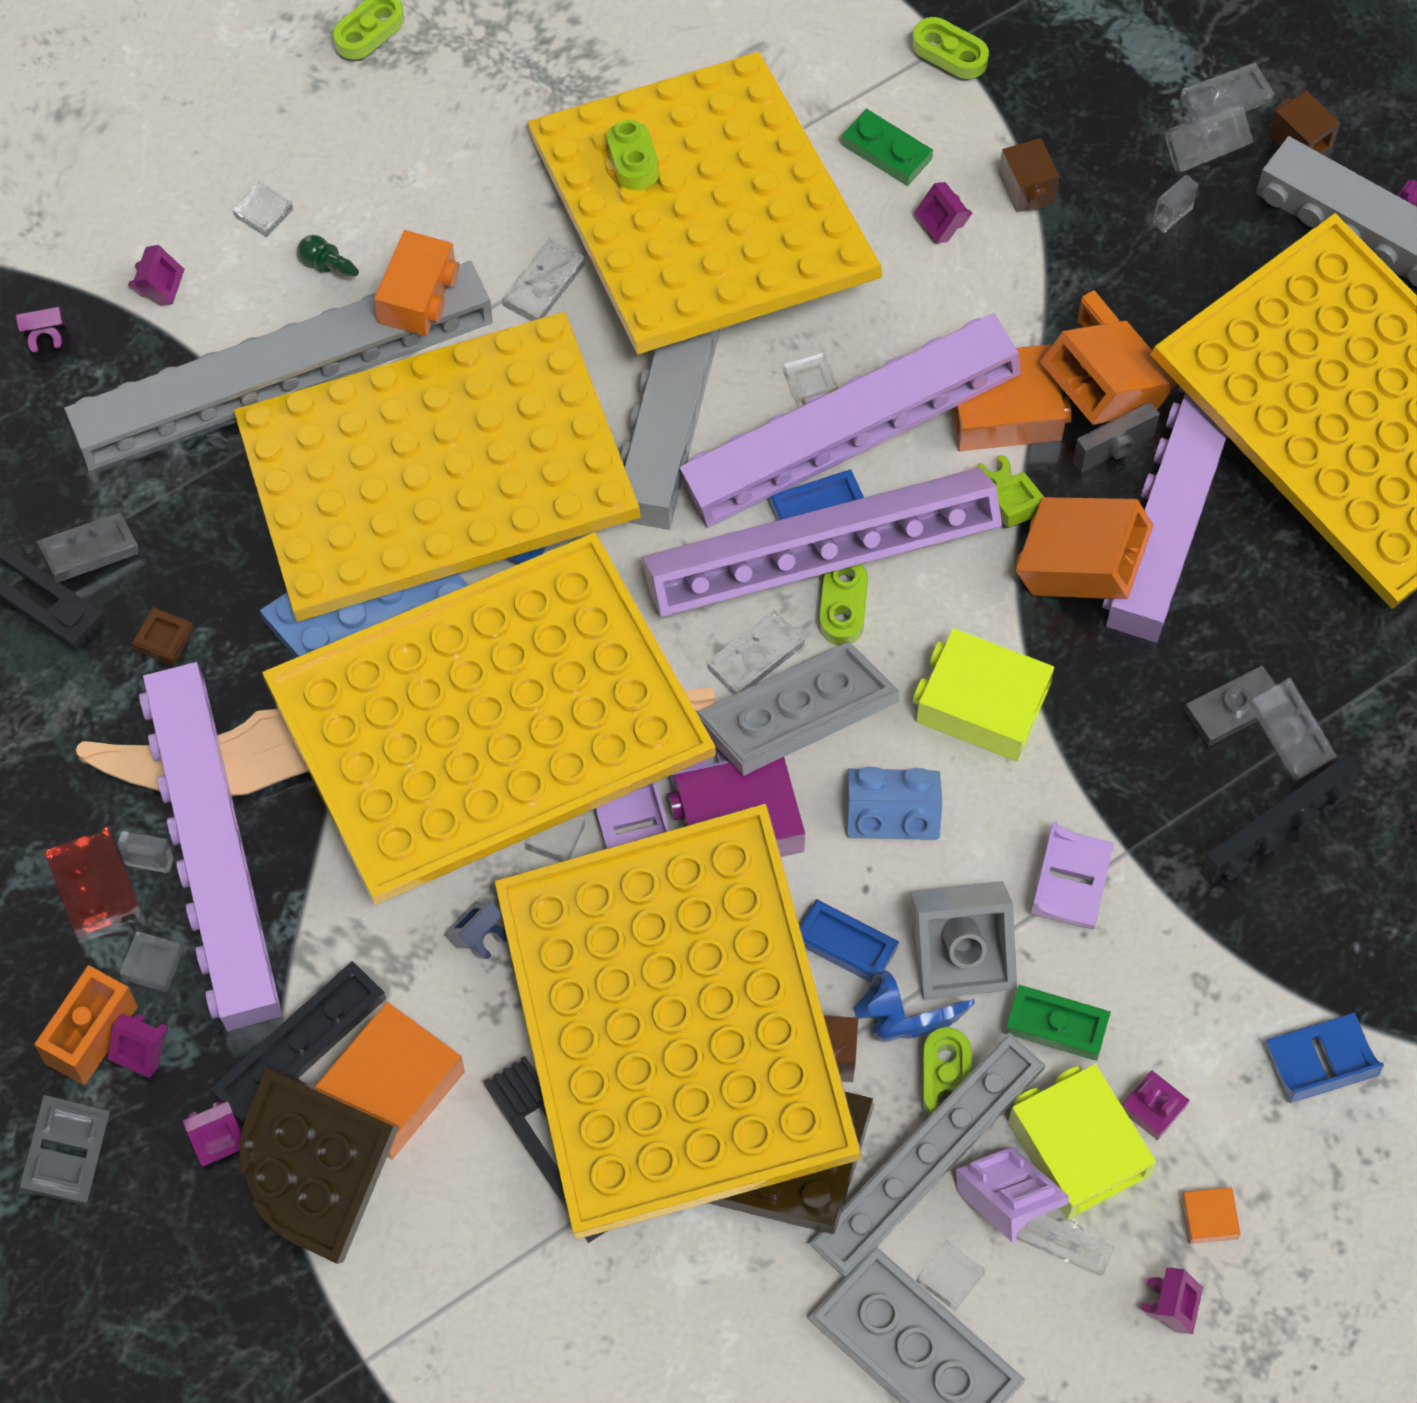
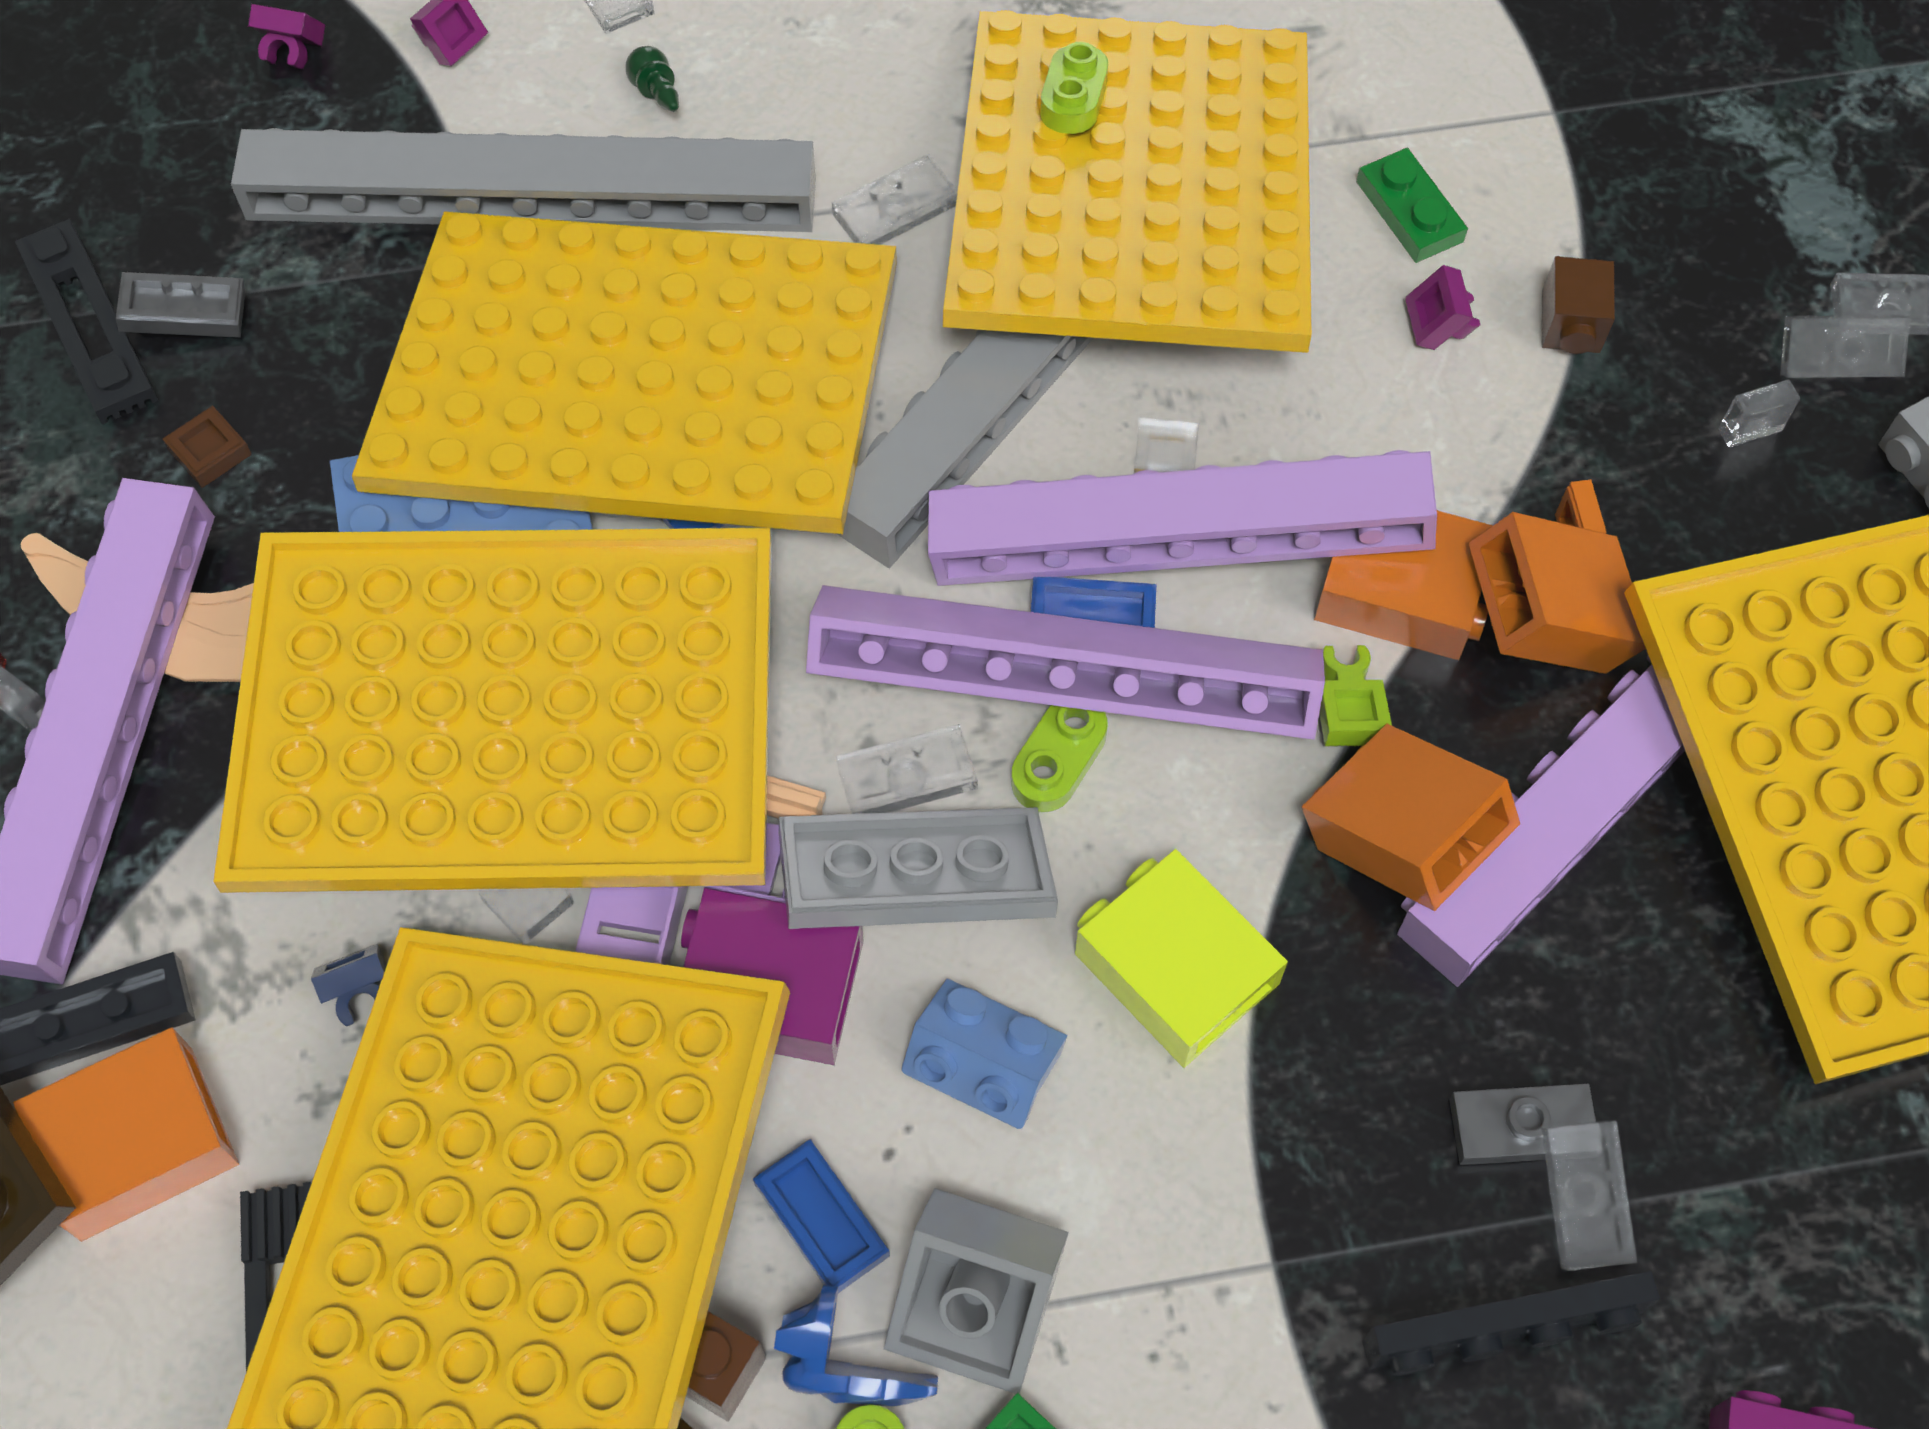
camera: 25 degrees right, 0 degrees up
(416, 283) = (722, 138): orange brick -> none
(952, 47) = (1560, 119): lime plate -> none
(1075, 856) = (1152, 1297): lavender piece -> none
(1116, 437) = (1531, 685): flat silver plate -> none

